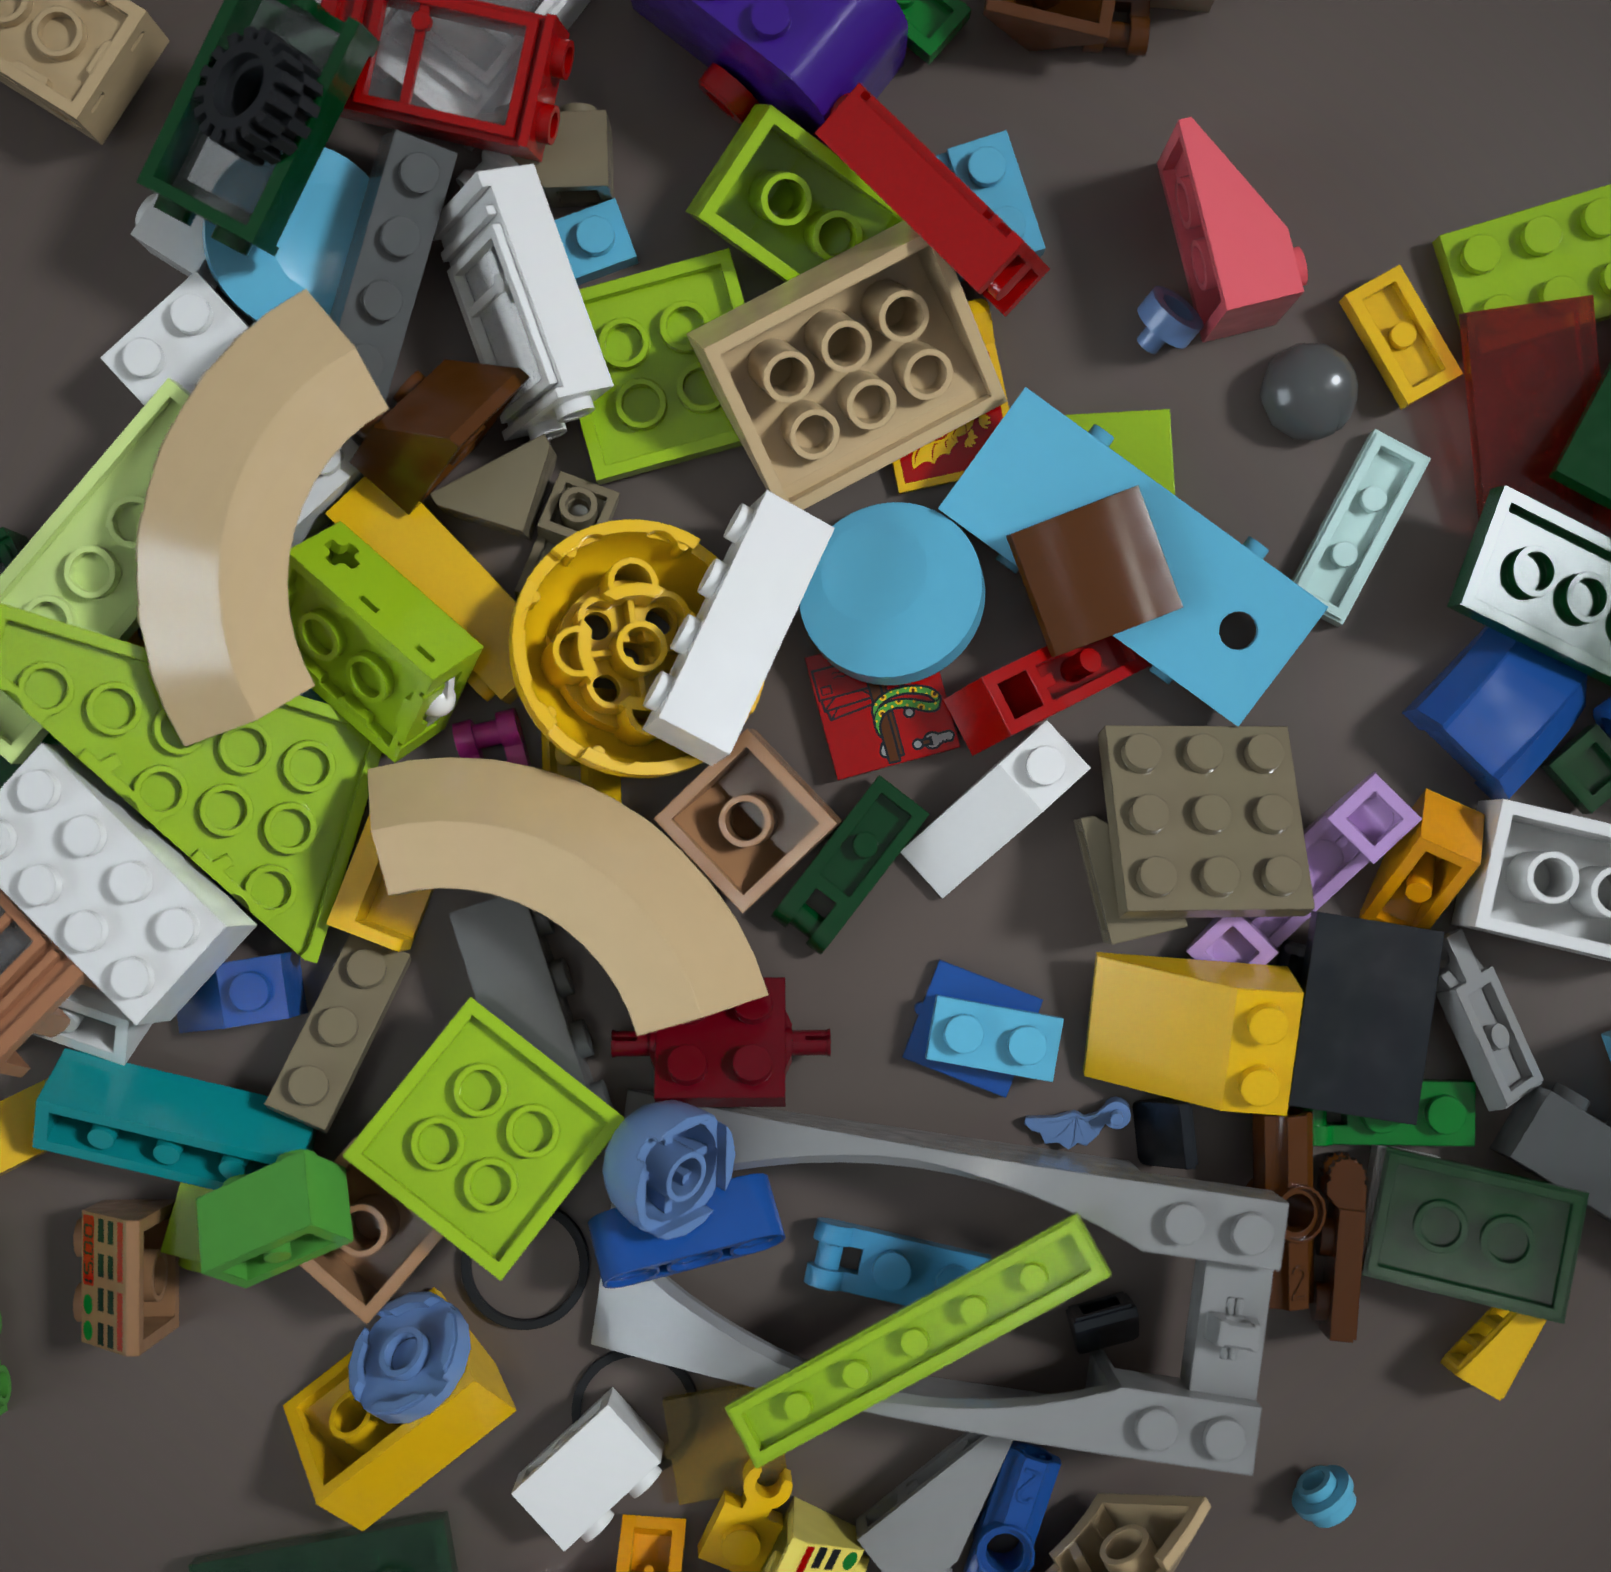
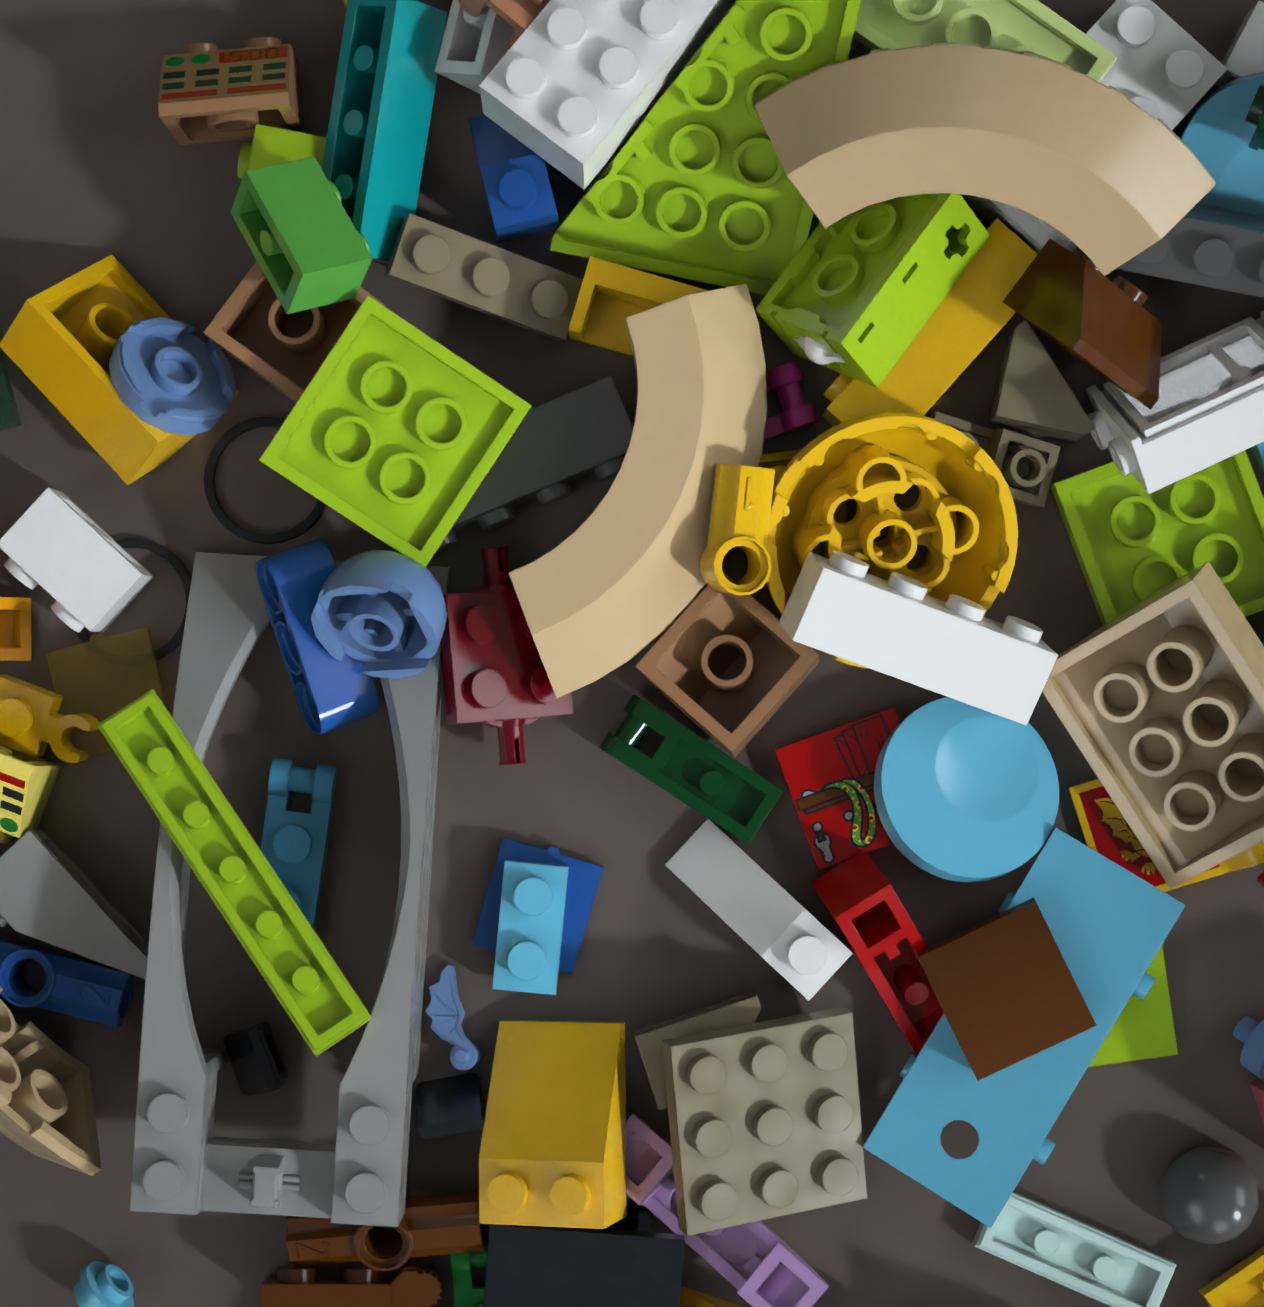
camera: 85 degrees right, 0 degrees up
(604, 794) = (742, 520): none -> yellow piece

